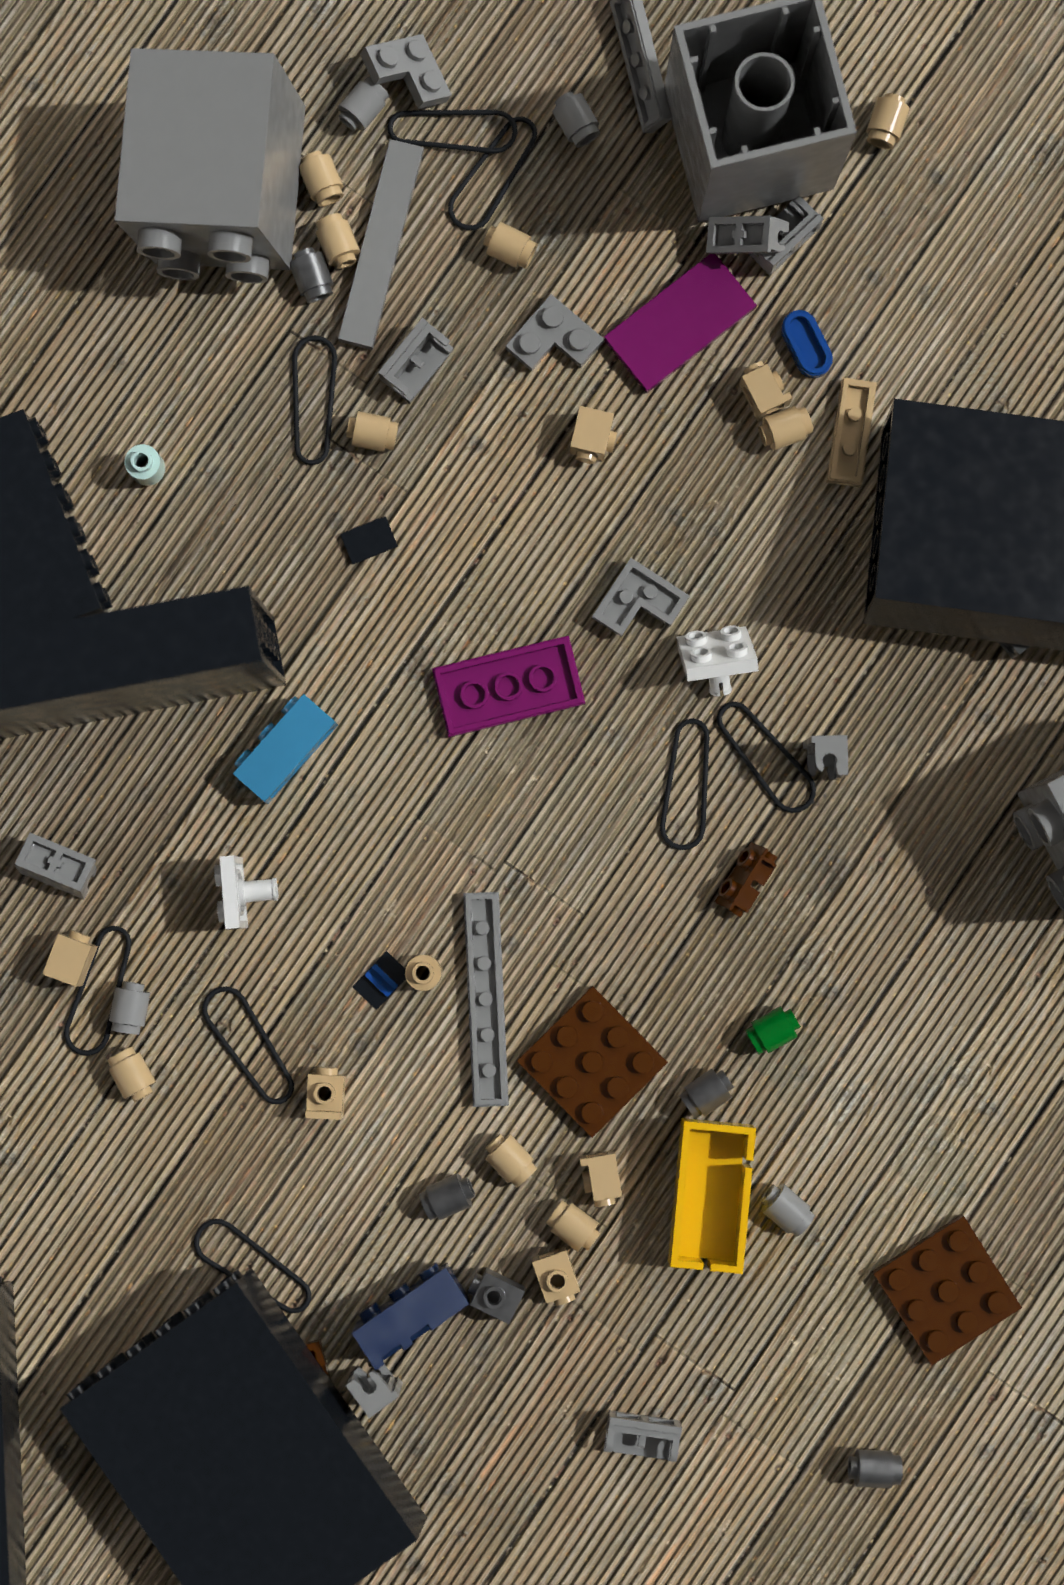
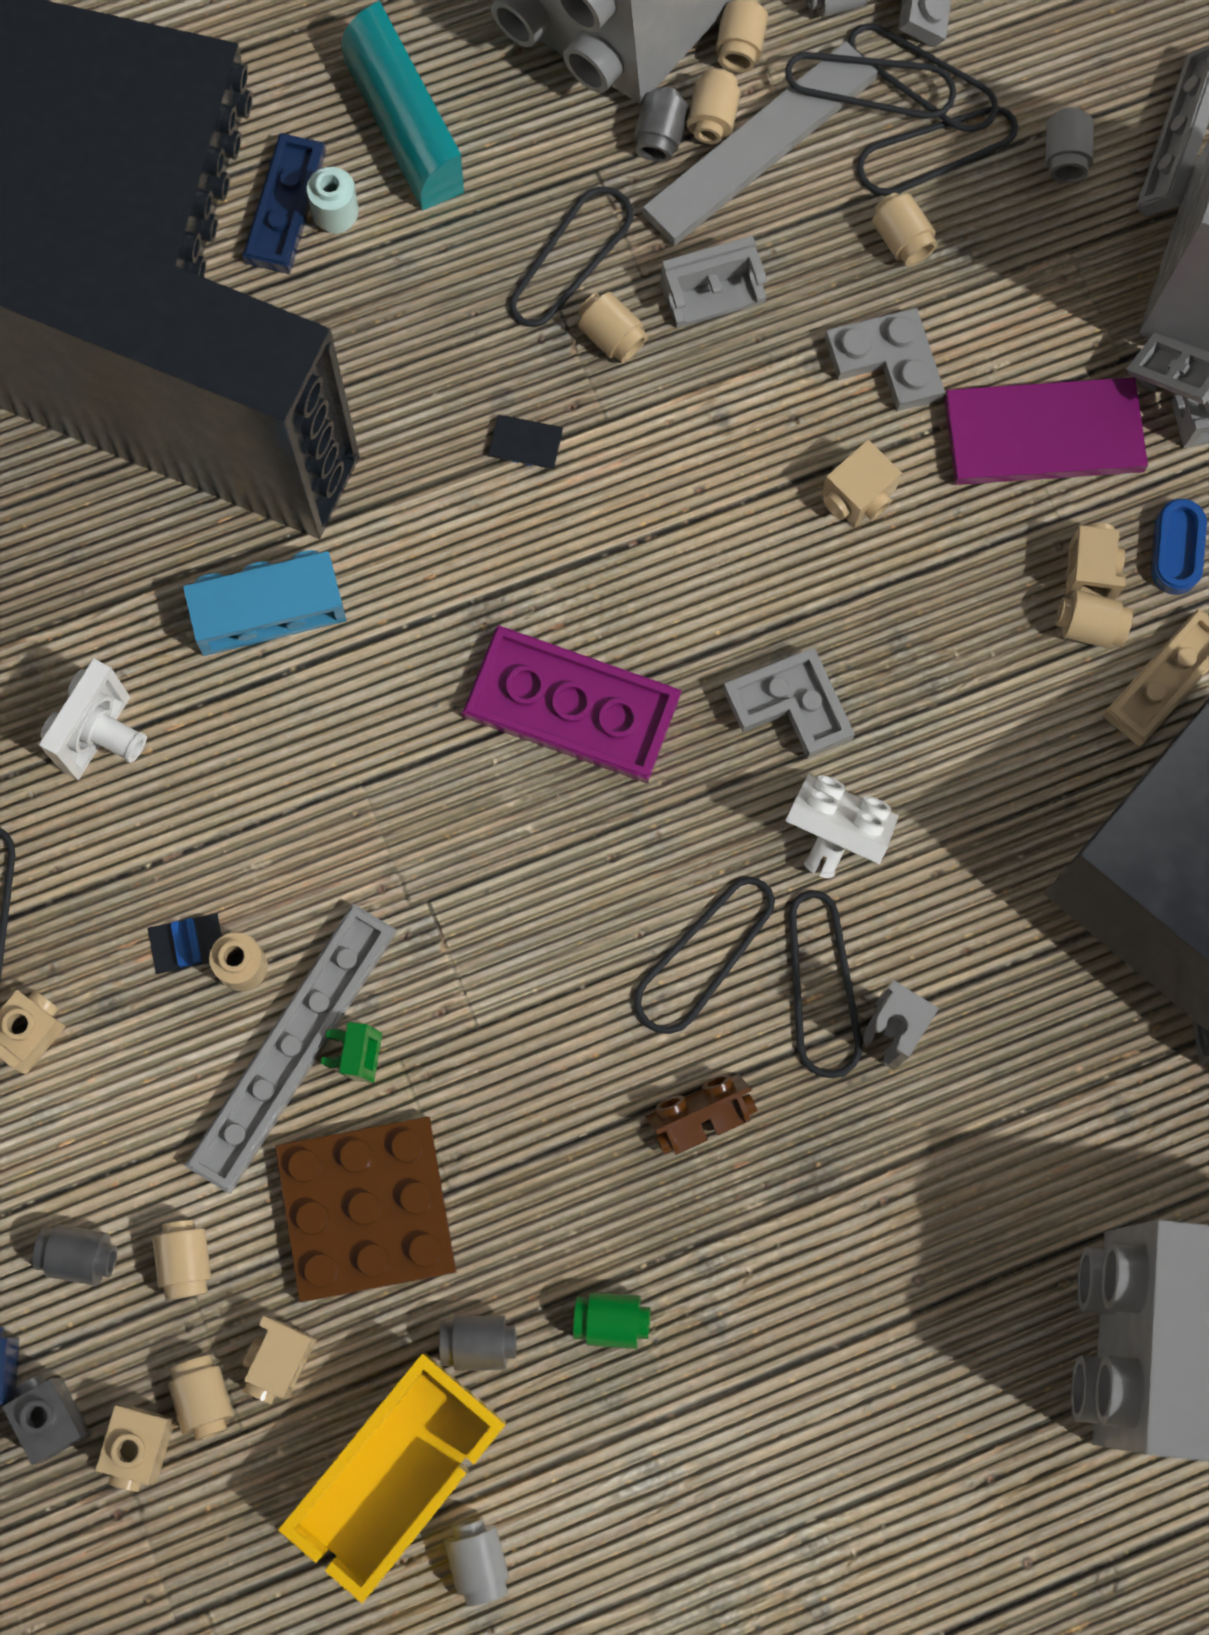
camera: 30 degrees right, 10 degrees down
(112, 483) = (283, 204): none -> dark blue tile
(144, 374) = (402, 107): none -> teal brick
(431, 174) = (867, 103): none -> black piece
(528, 977) = (359, 1053): none -> green tile

